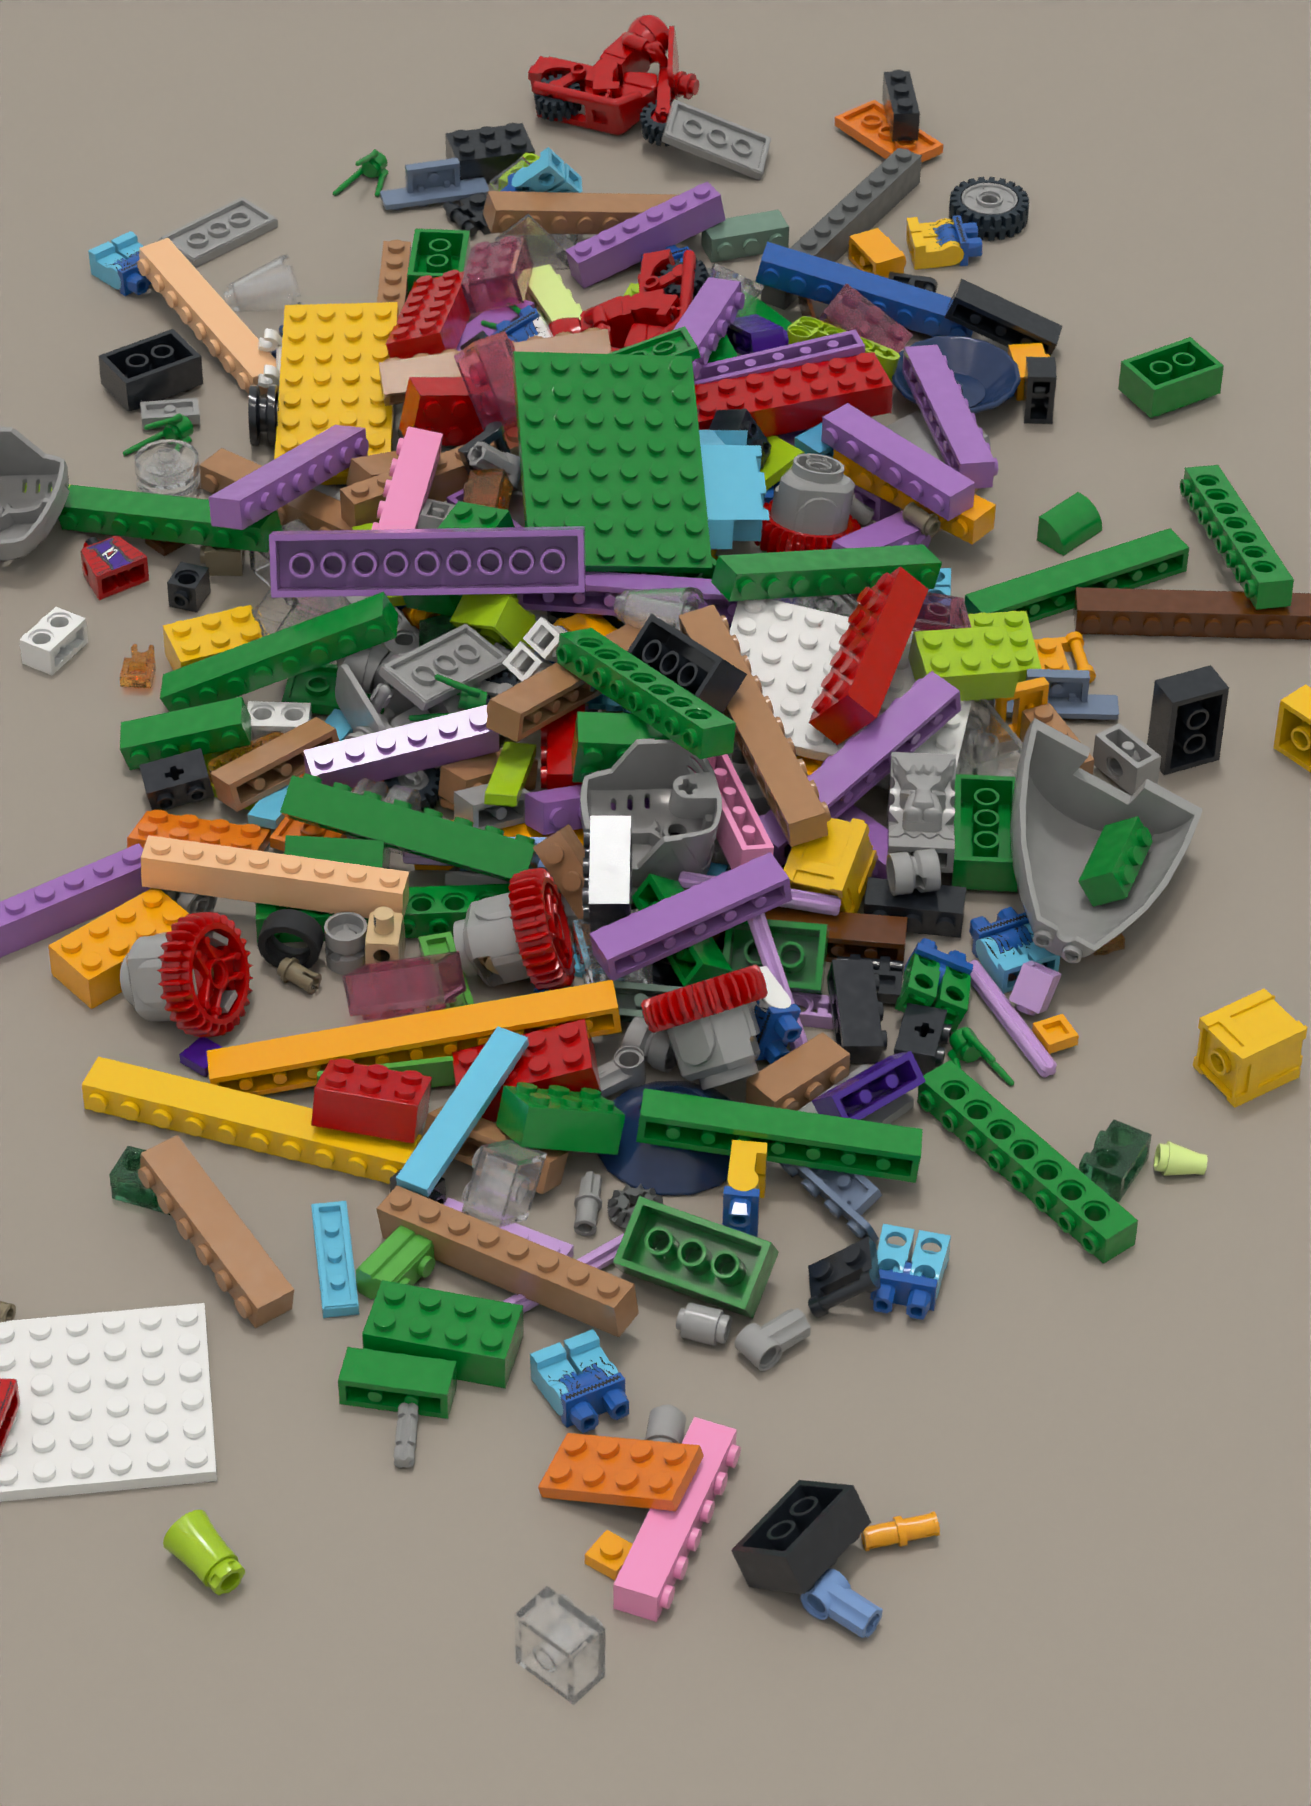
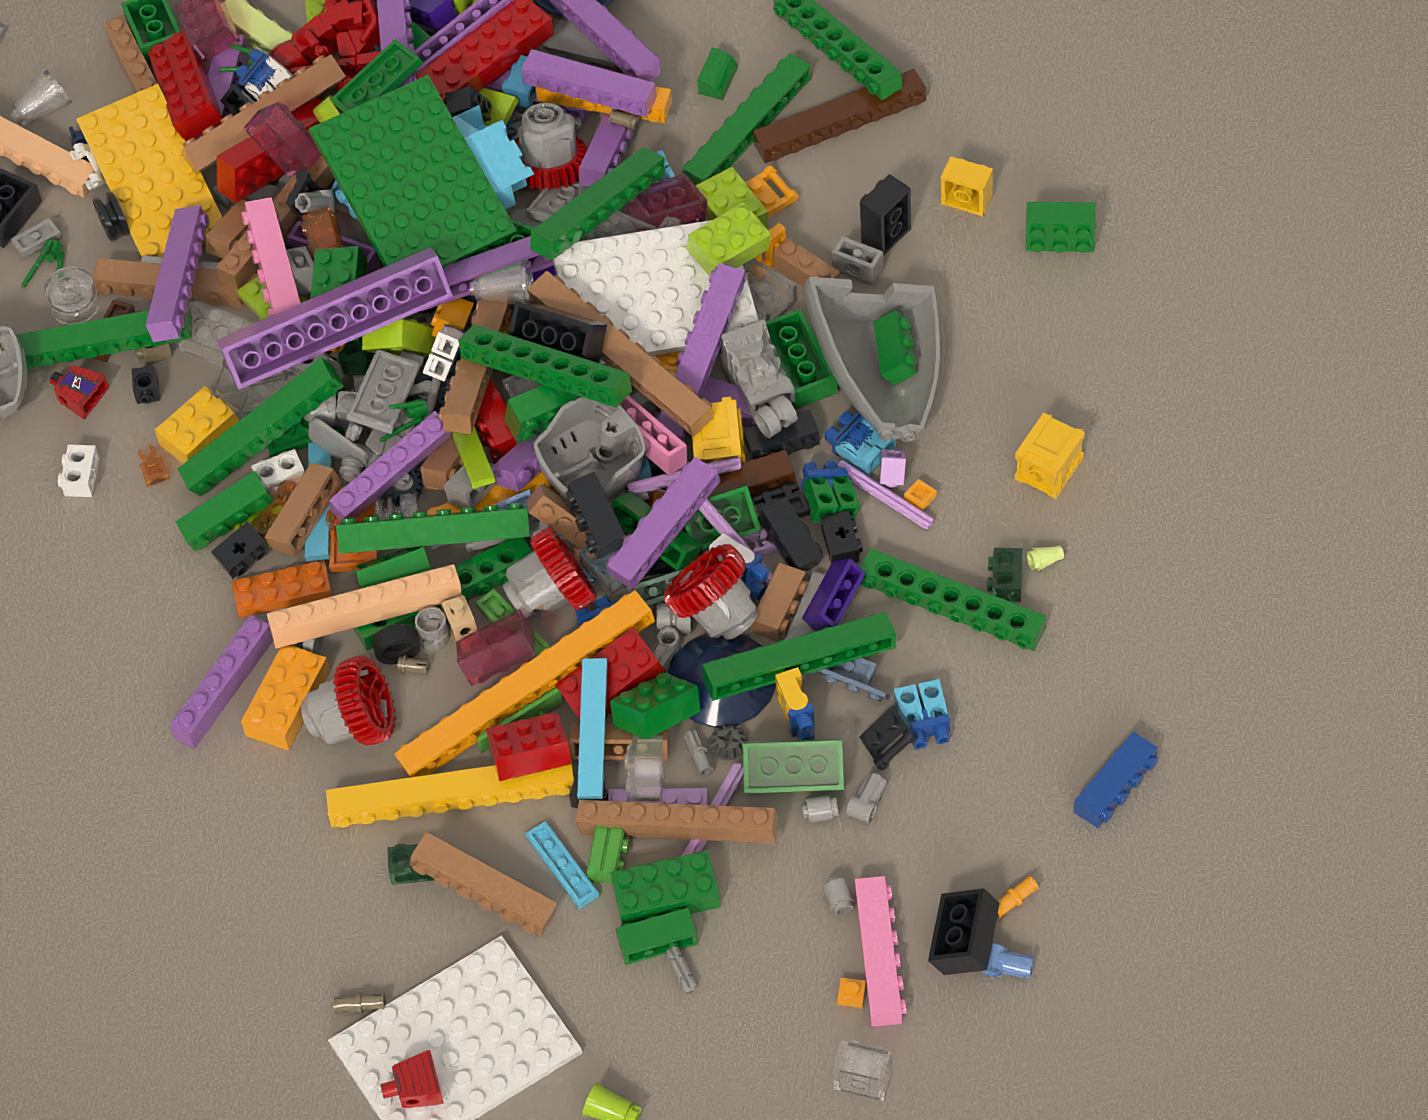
camera: 20 degrees left, 15 degrees up
(196, 1055) = (384, 754): dark purple tile -> none
(579, 1381) = (768, 884): hips -> none
(621, 1471) = (830, 936): orange plate -> none
(868, 655) = (669, 266): red brick -> none
(968, 1048) = (872, 530): green plant -> none
(1070, 695) = (796, 220): sand blue bracket -> none
(1123, 1448) = (1115, 780): none -> blue brick

